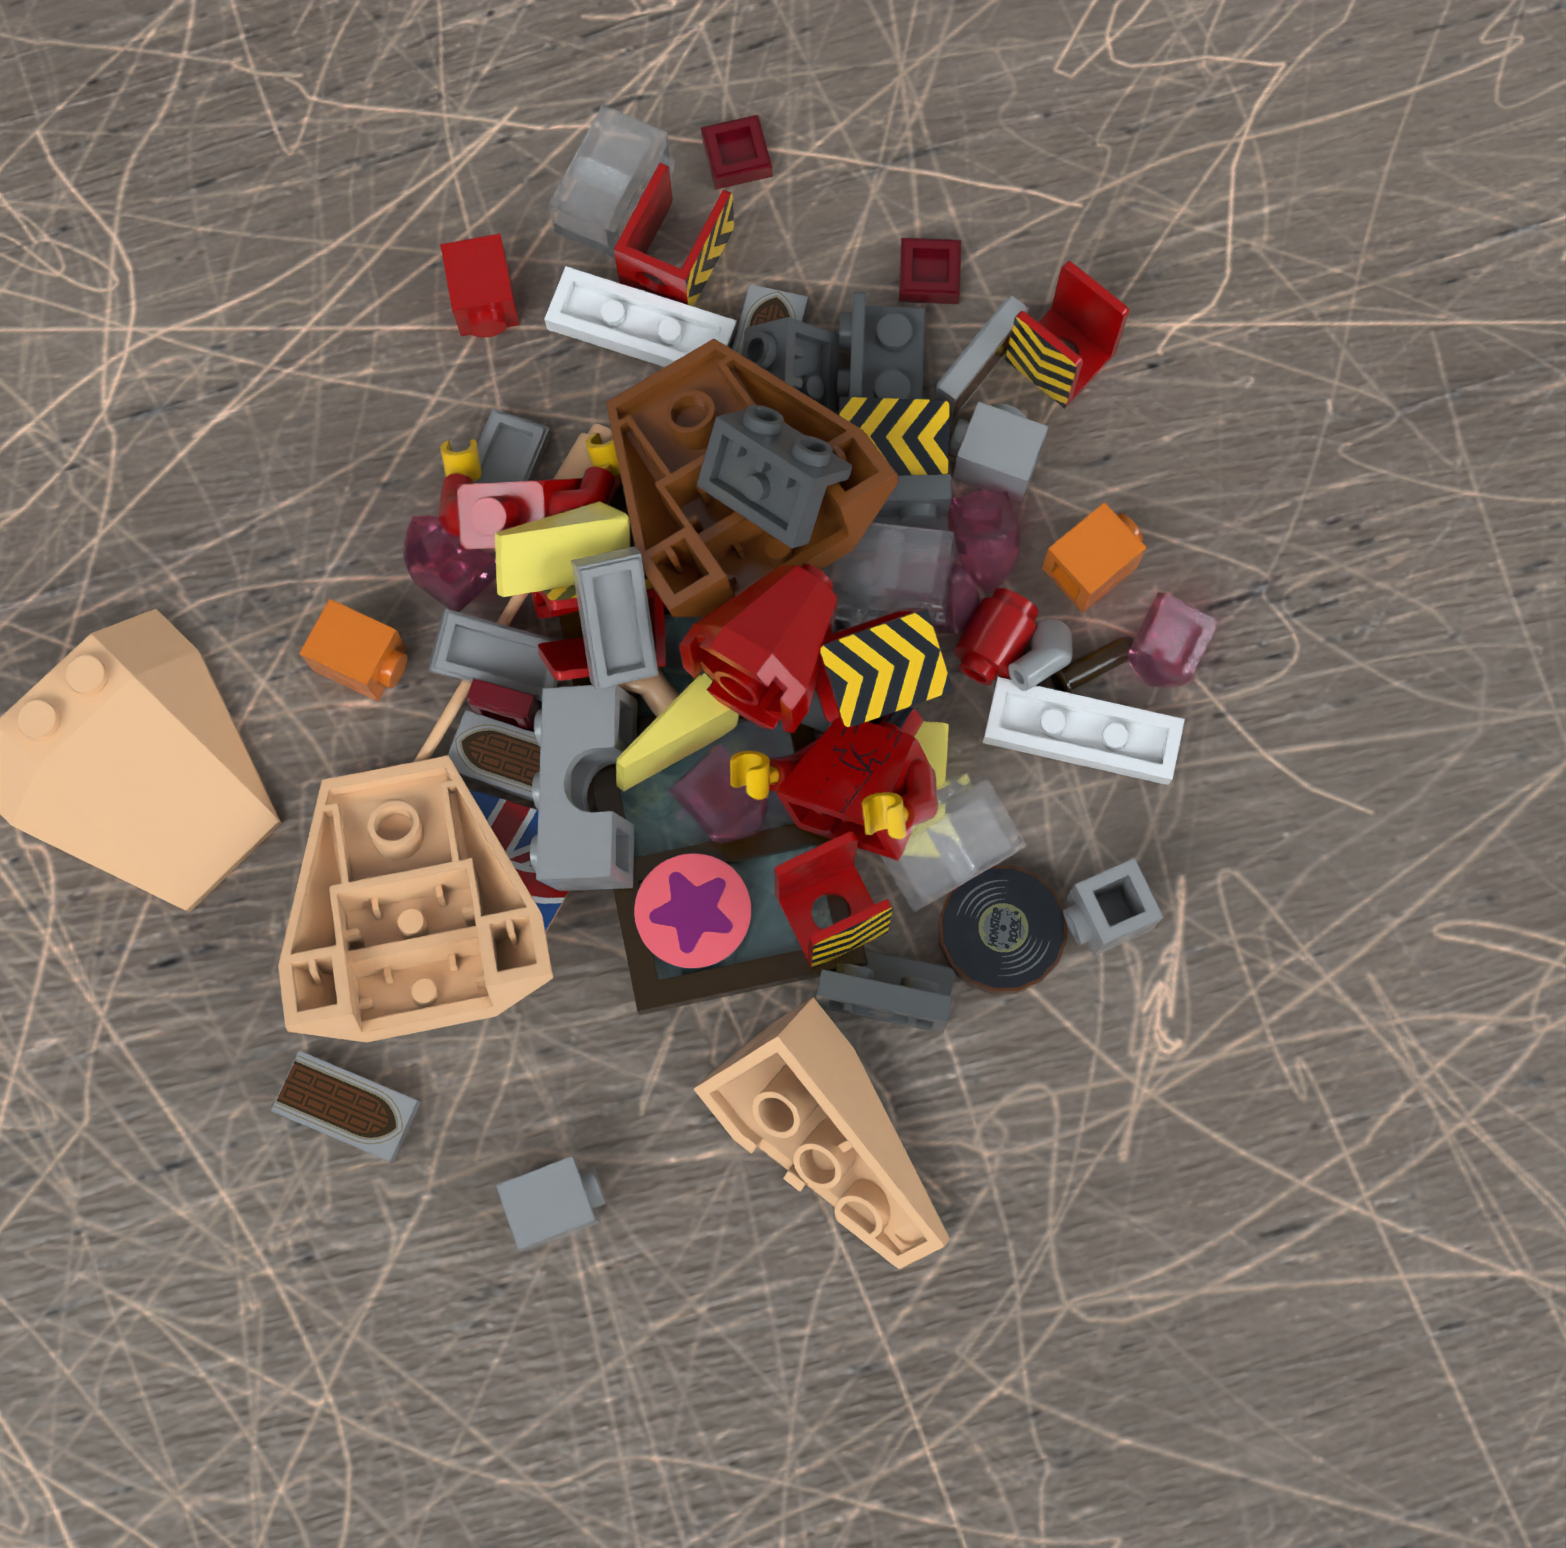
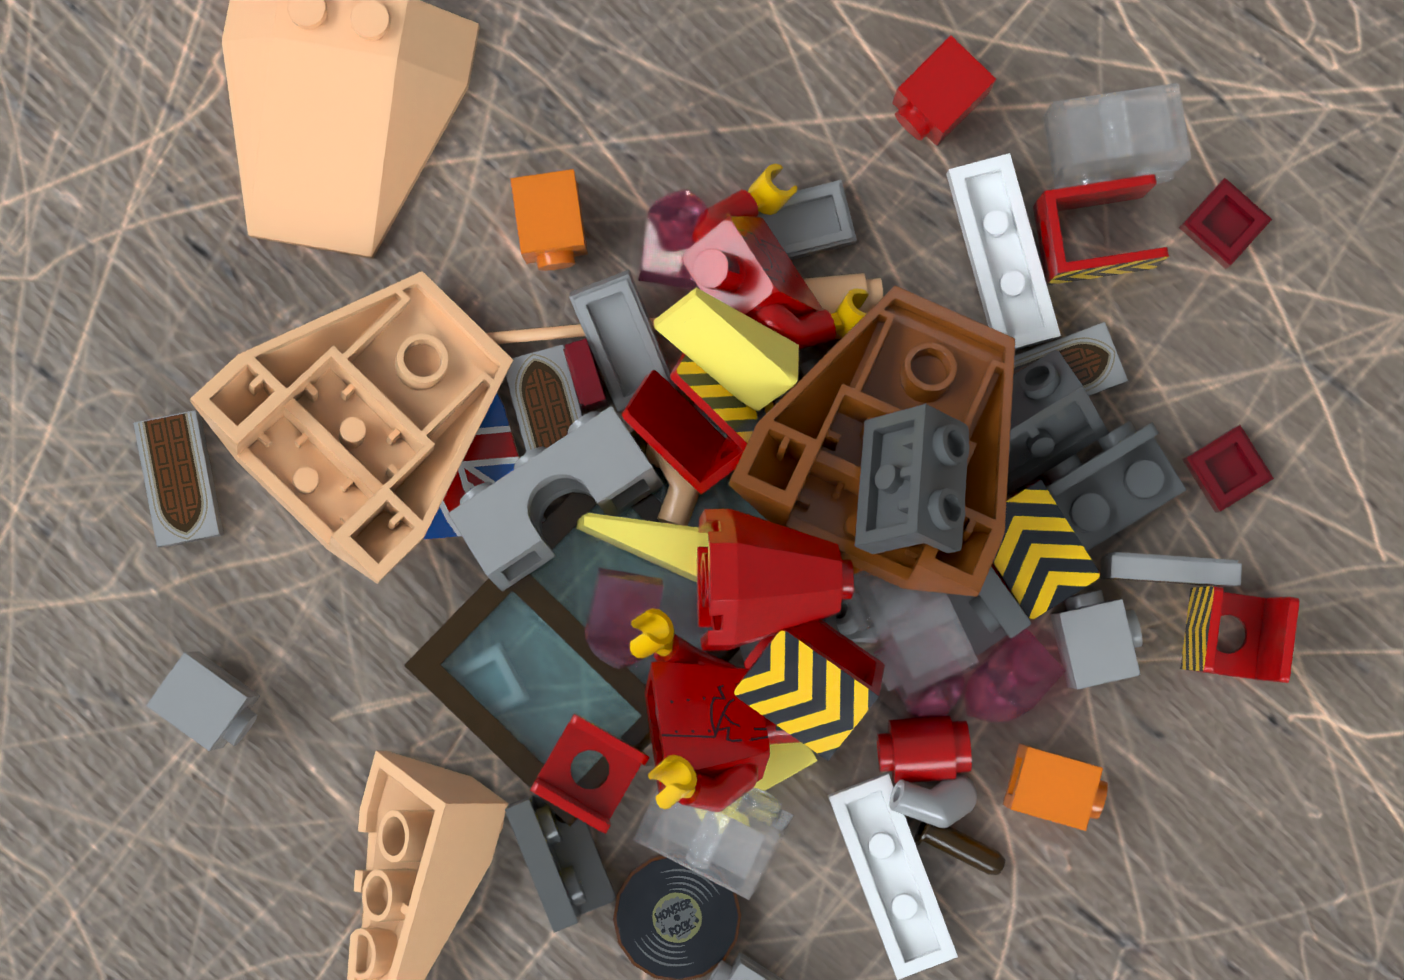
camera: 60 degrees right, 10 degrees up
(615, 617) = (701, 432): light grey tile -> none
(692, 910) = (516, 653): coral sticker -> none
(1170, 643) = (1019, 902): clear pink plate -> none

